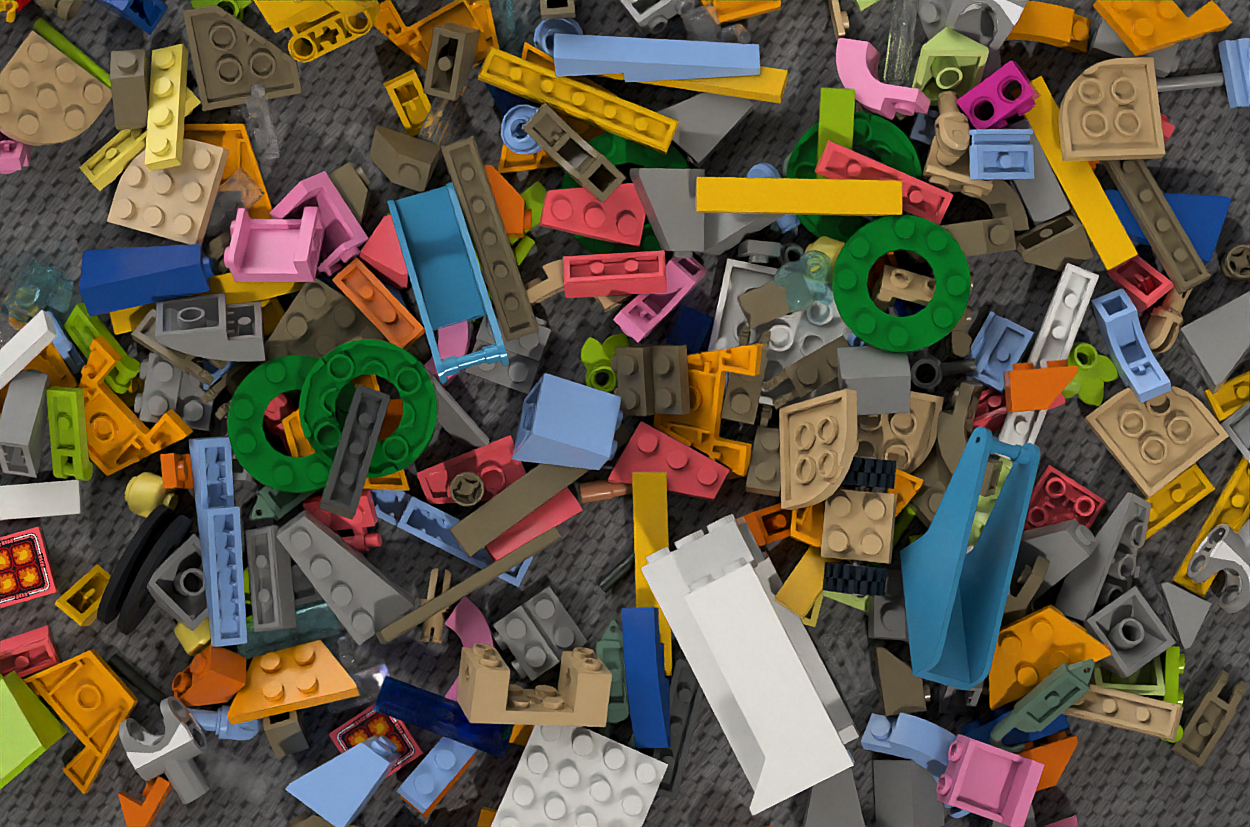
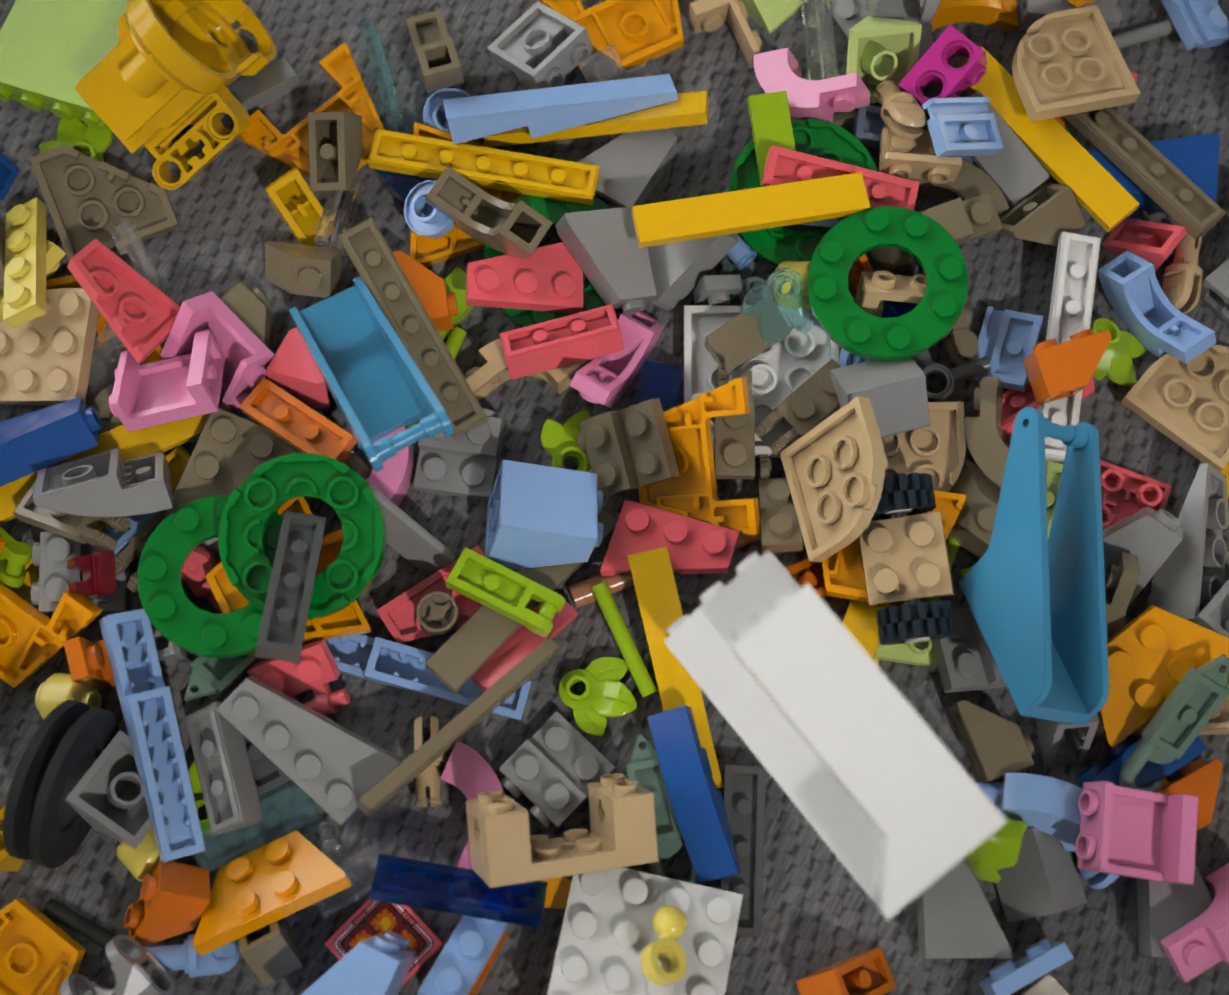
camera: 10 degrees left, 10 degrees down
(193, 401) = (98, 574): none -> dark red tile
(251, 164) = (127, 300): none -> coral wing
(525, 482) = (504, 591): none -> lime plate
(589, 582) = (603, 694): none -> lime plate
(604, 777) = (669, 926): none -> light yellow plate
(616, 539) = (624, 639): none -> lime bar
(874, 768) = (997, 851): none -> lime hair

